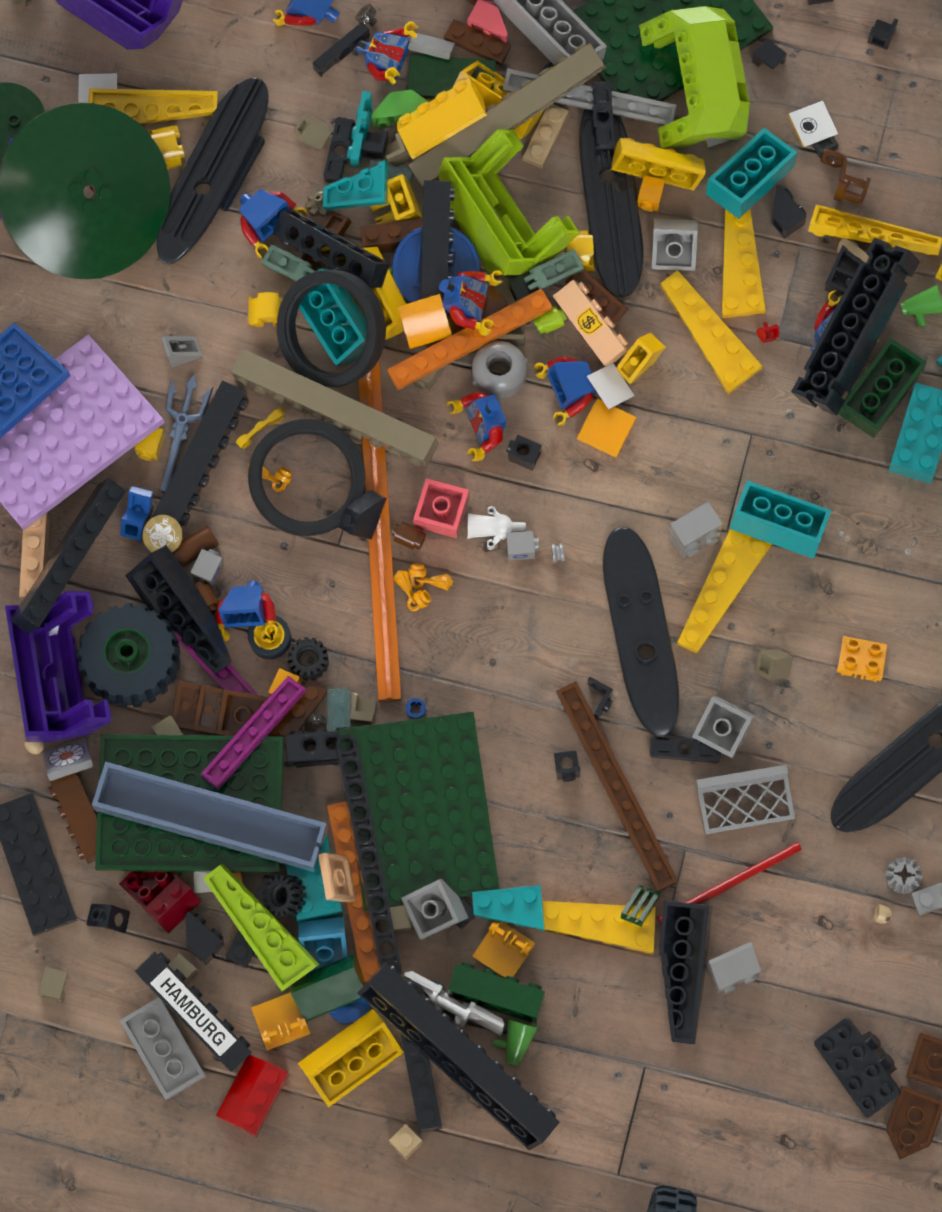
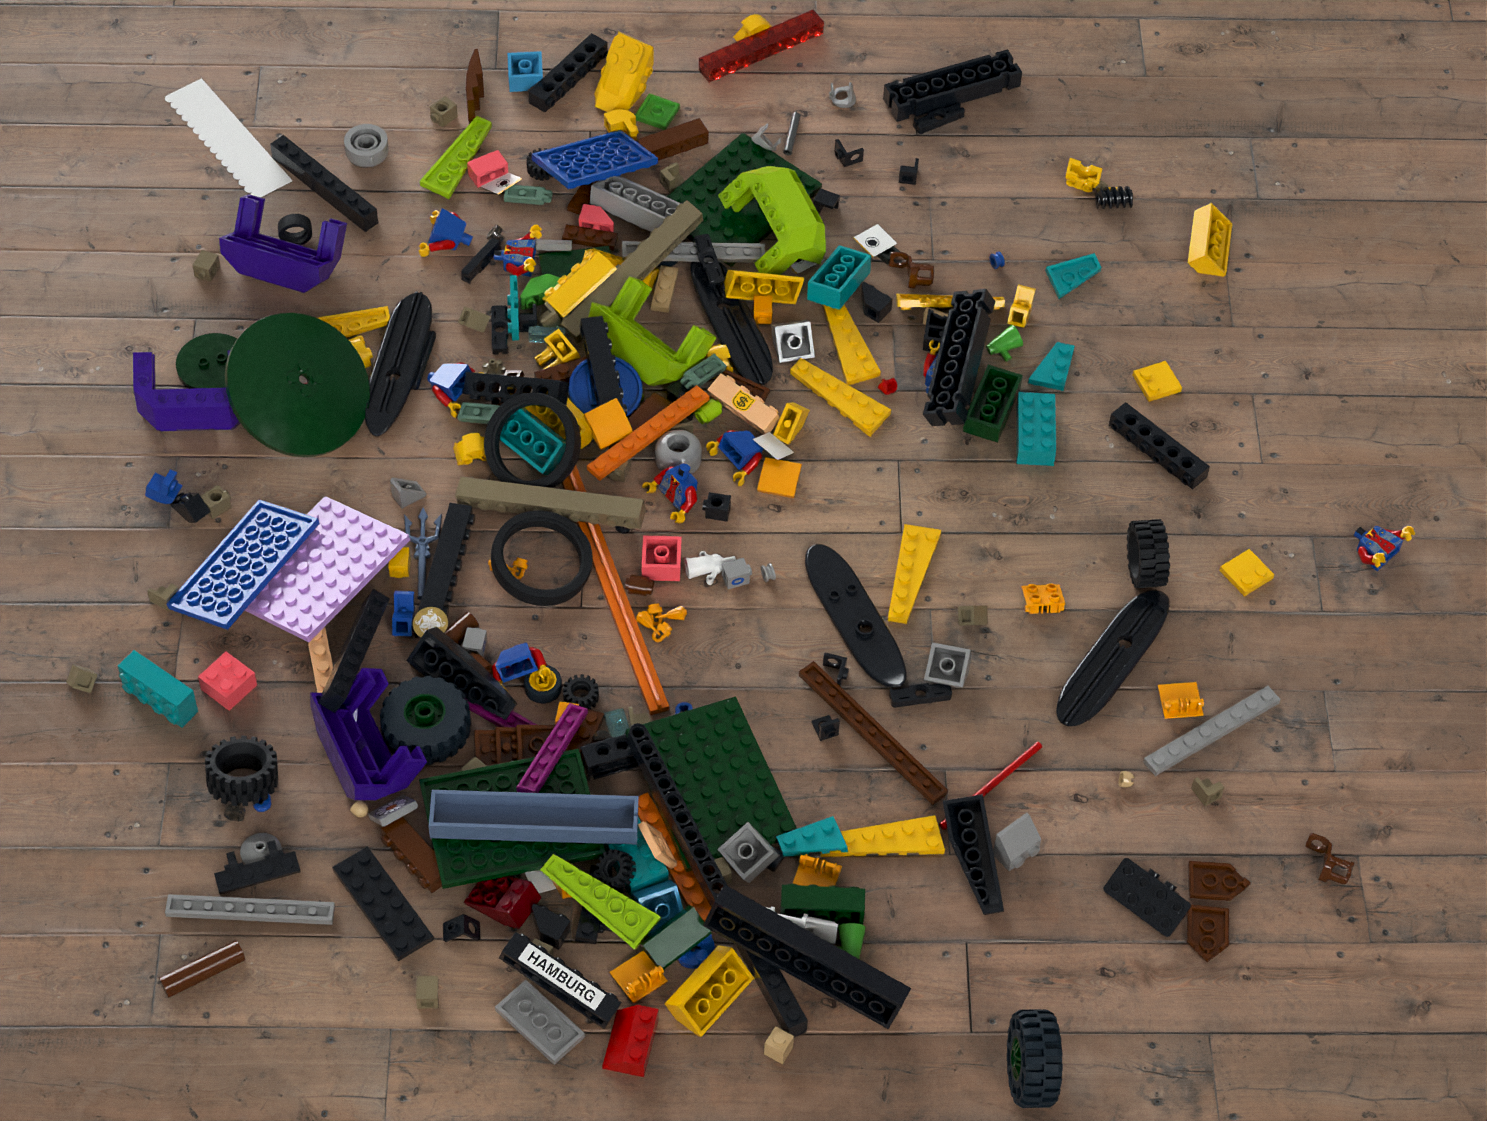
camera: 20 degrees left, 20 degrees down
(274, 418) = (480, 546): yellow piece -> none
(361, 190) = (530, 346): teal wing -> none
(363, 515) = (597, 575): black slope -> none
(466, 298) = (638, 399): torso -> none
(645, 894) = (931, 810): tile -> none
(695, 530) = (877, 530): light grey brick -> none
(743, 779) = (974, 703): light grey fence -> none
(780, 519) = (943, 508): teal brick -> none
(895, 882) = (1127, 752): light grey gear -> none

